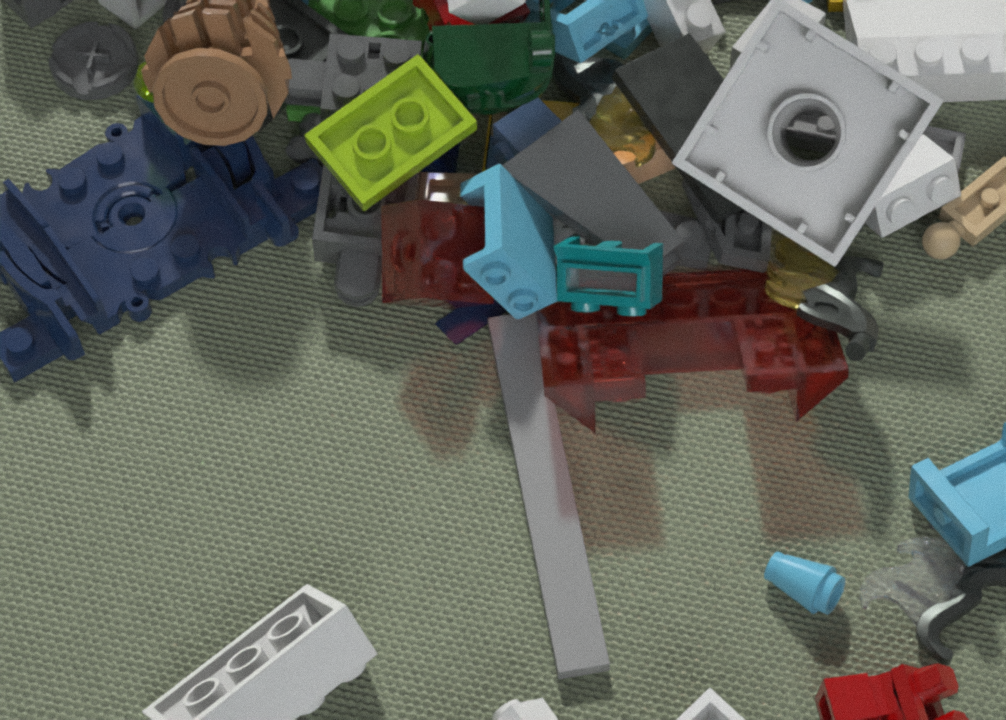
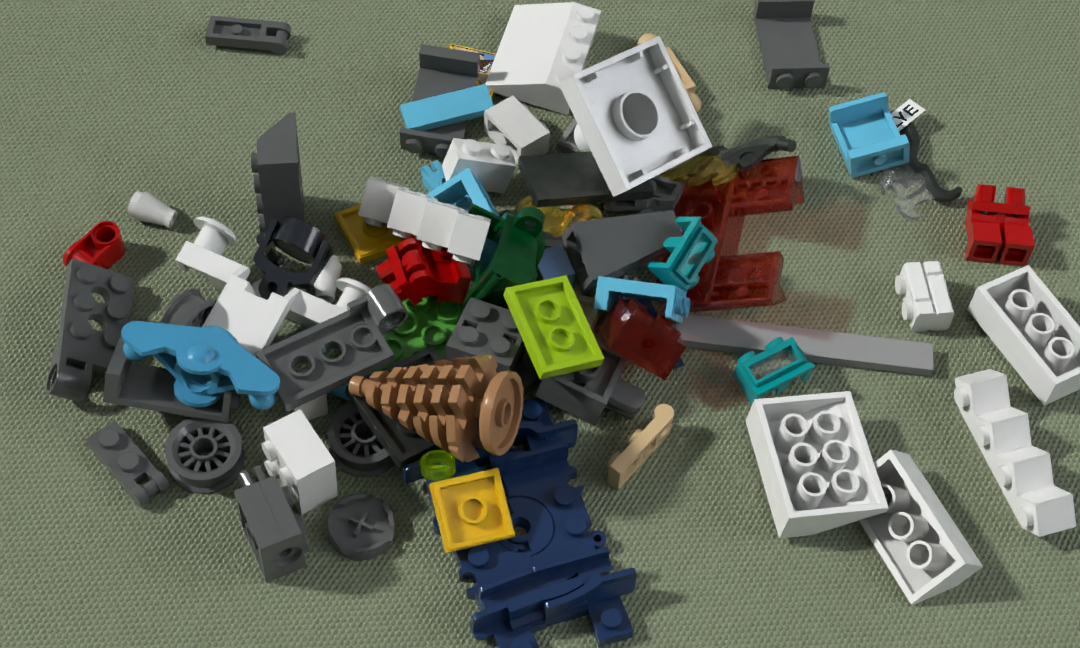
camera: 80 degrees left, 5 degrees down
(121, 146) = (471, 510): none -> yellow tile
(291, 316) = (640, 446): none -> tan plate
(317, 521) = (814, 462): none -> white slope
(468, 443) = (771, 368): none -> teal window
(695, 634) = (924, 296): none -> white brick
(805, 581) = (901, 235): medium azure cone -> none

